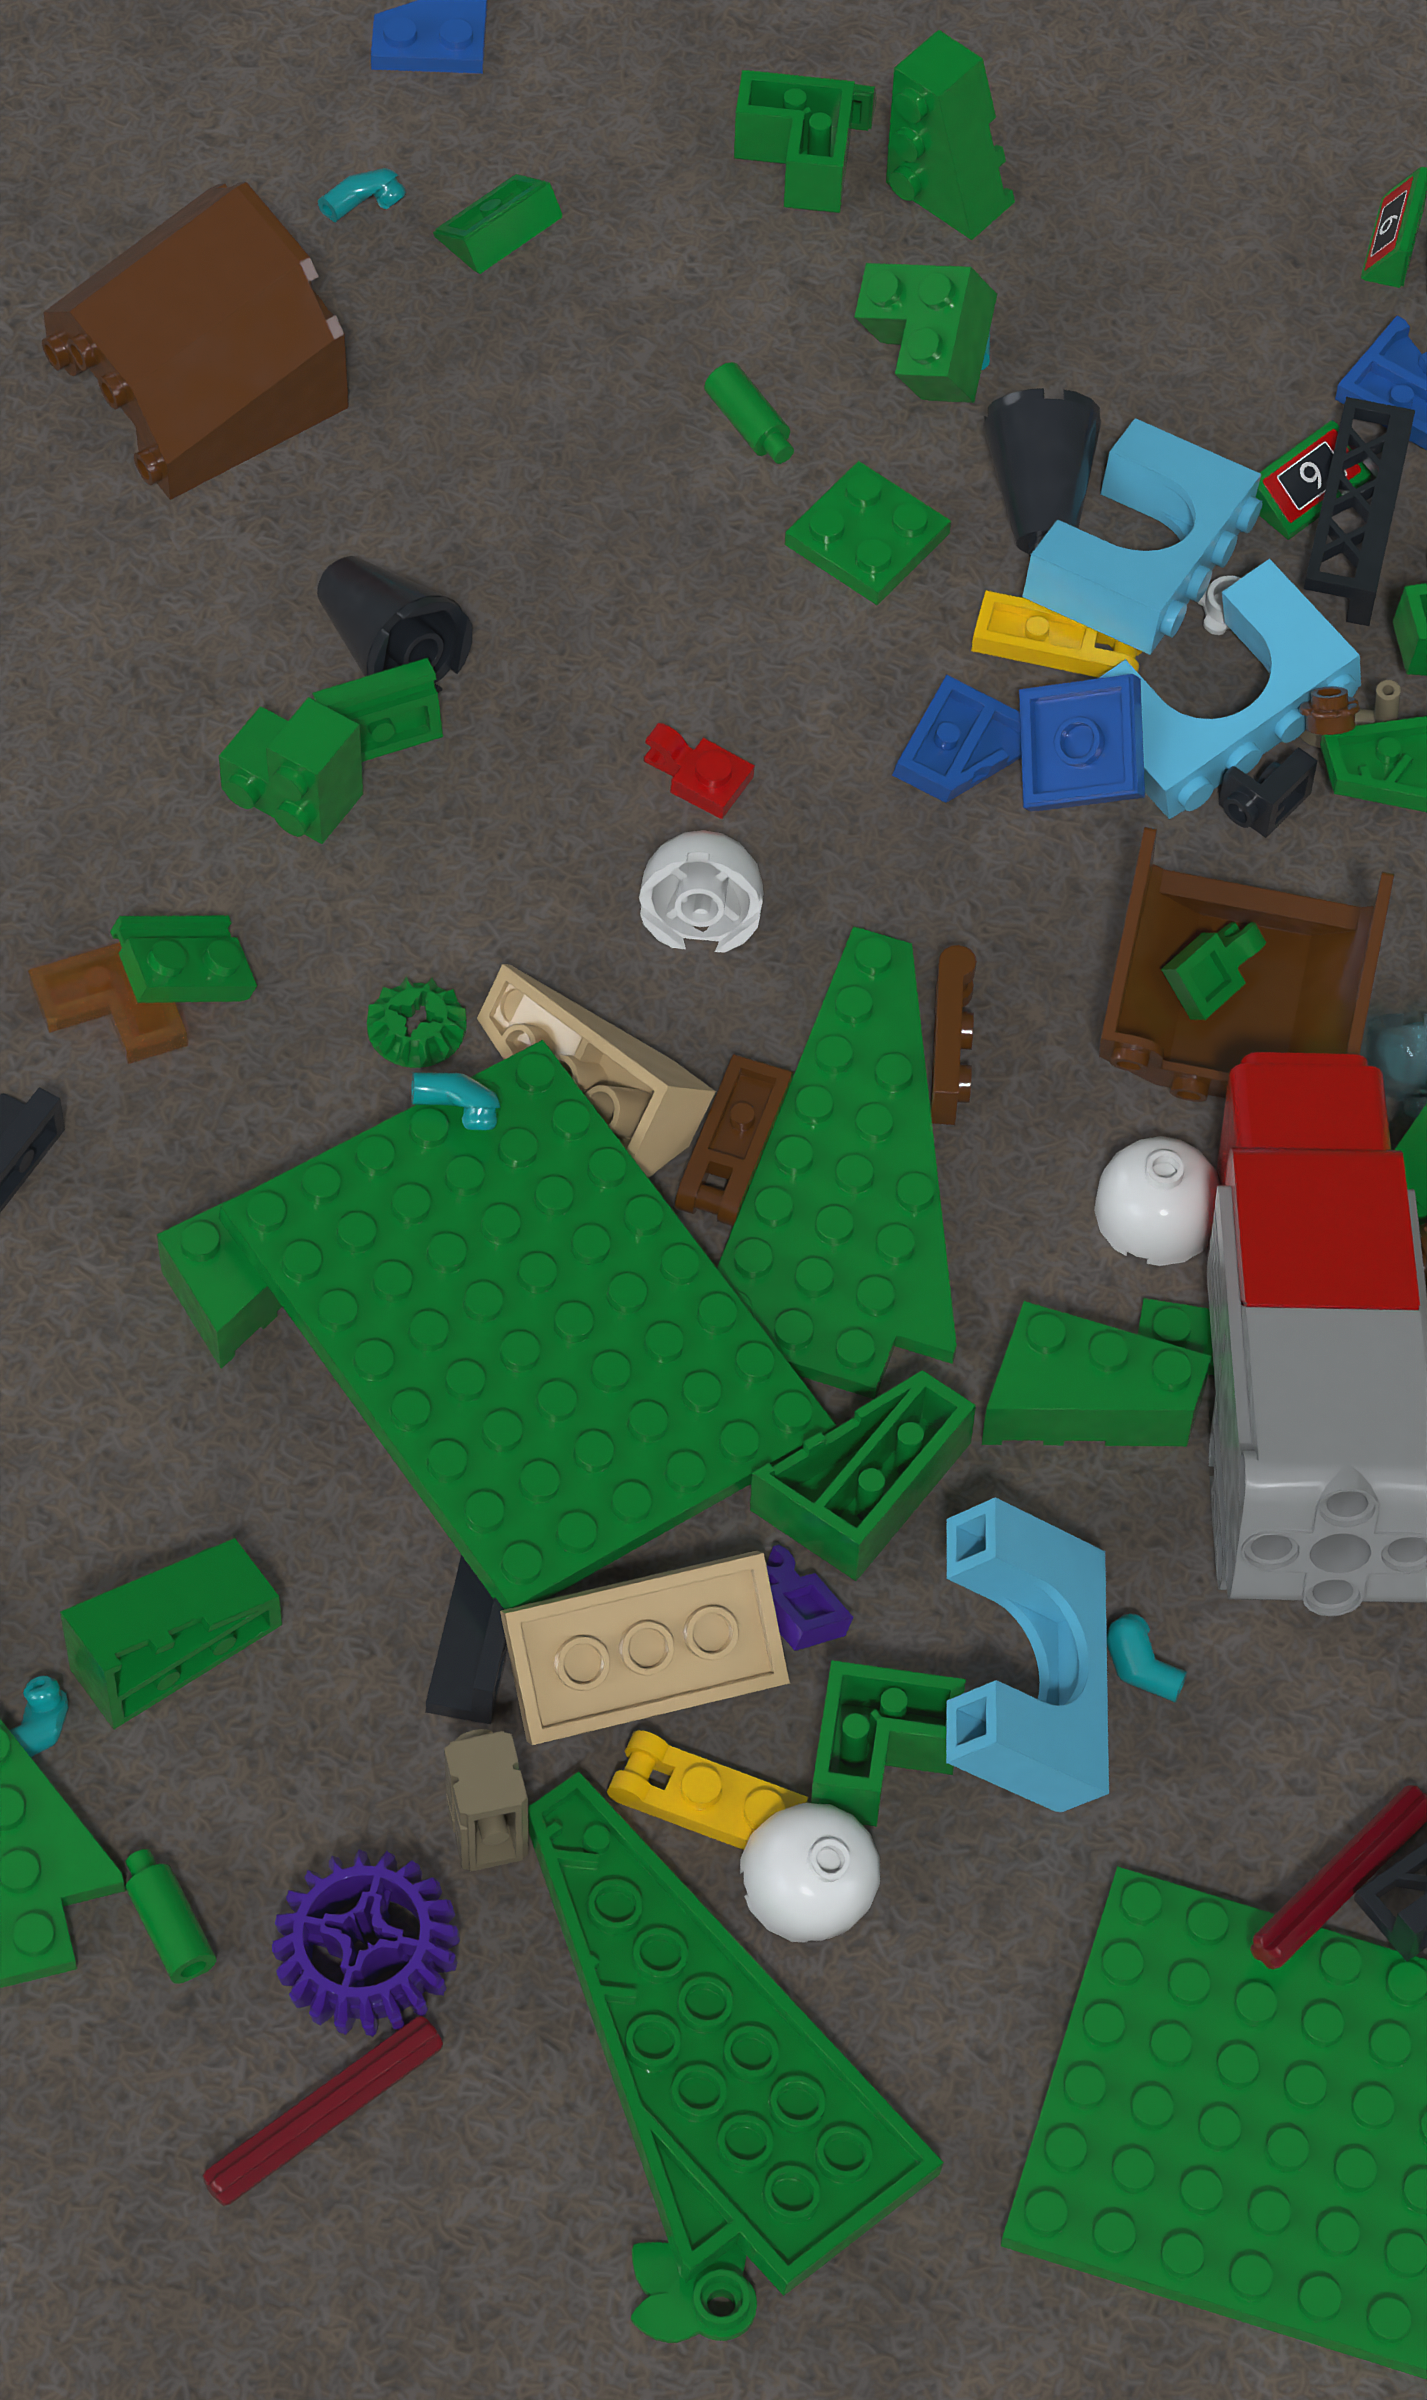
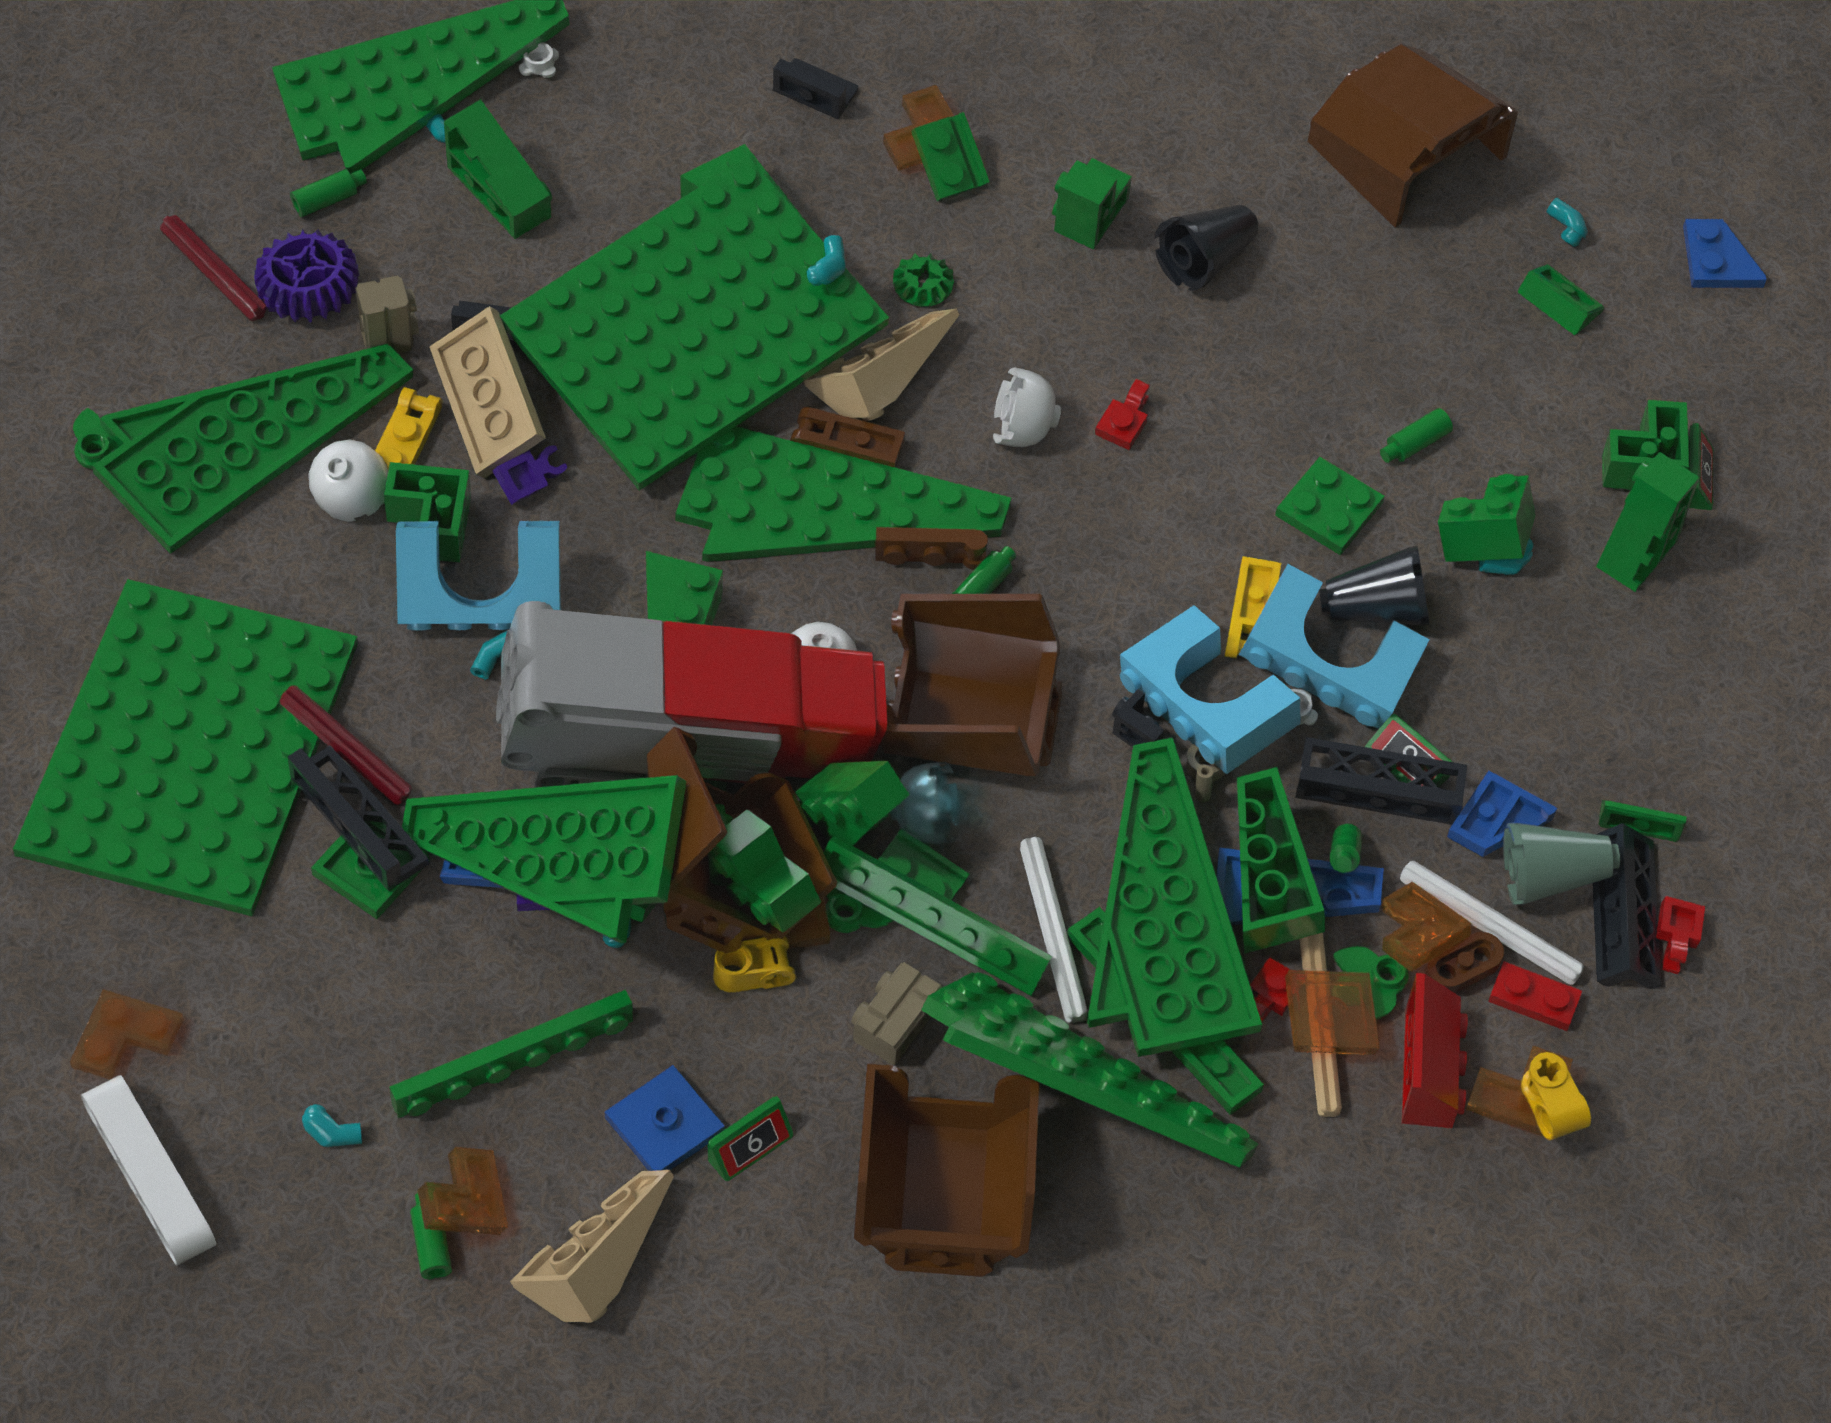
camera: 85 degrees right, 0 degrees up
(392, 707) = (1138, 240): green plate -> none
(867, 1476) = (606, 502): green wedge -> none
(959, 742) = (1162, 555): blue wing -> none
(1009, 974) = (988, 573): none -> green cylinder
(1082, 743) = (1154, 608): blue plate -> none
(1208, 971) = (985, 684): green plate -> none
(1330, 711) = (1184, 738): reddish brown plate -> none

